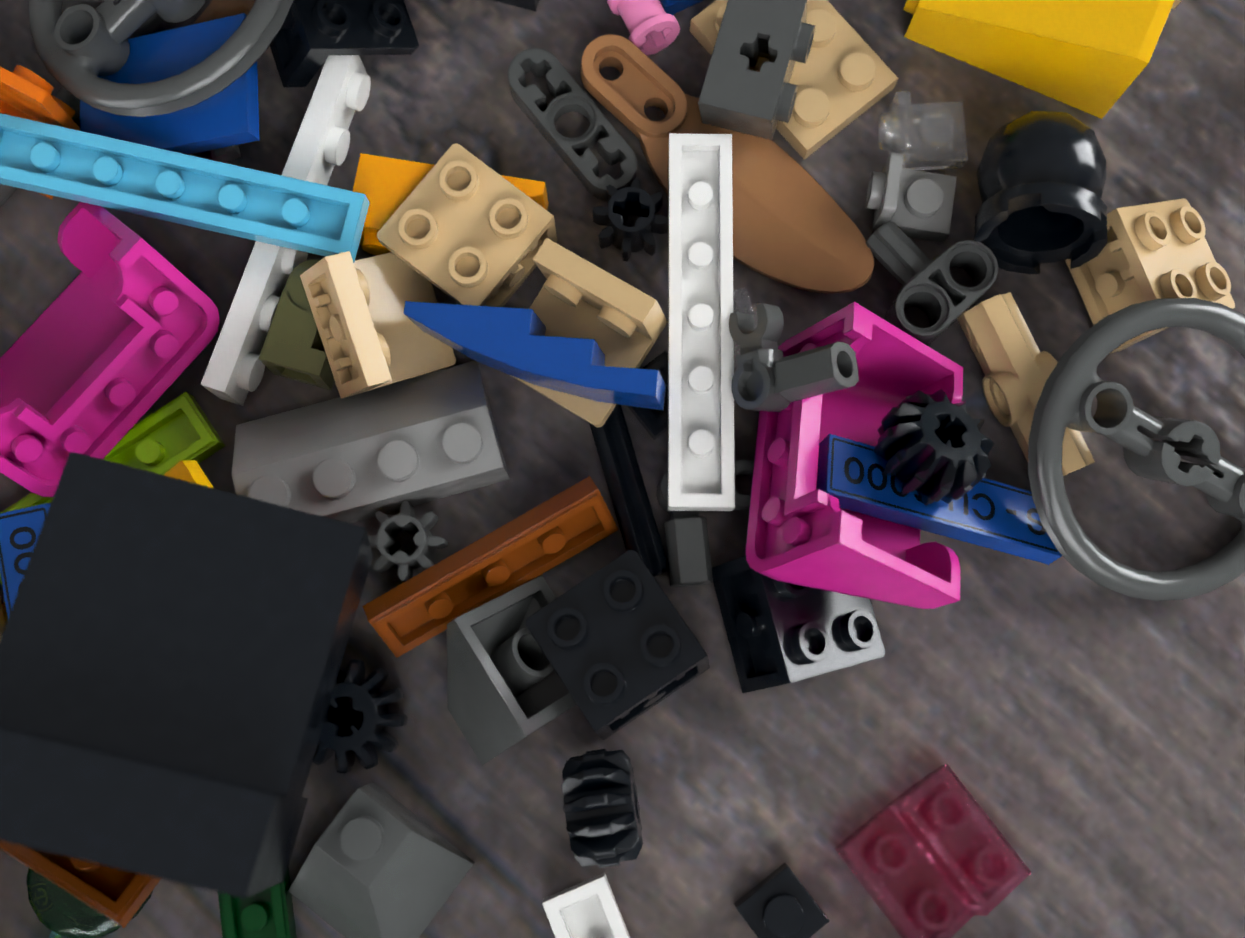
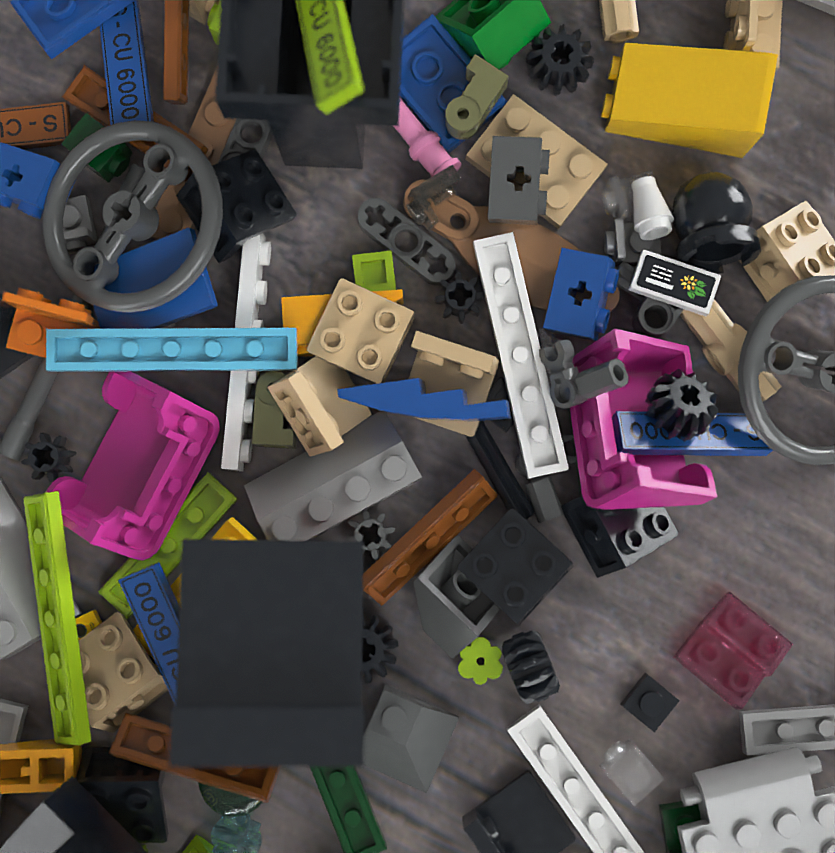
camera: 10 degrees left, 5 degrees up
(510, 789) = (491, 666): none -> lime plant
(514, 149) = (374, 271): none -> lime plate
(625, 45) = (436, 189): none -> clear smoke bracket
(813, 216) = (573, 274): none -> blue brick
(948, 151) = (651, 212): none -> white cone
(963, 262) = (674, 282): none -> tile

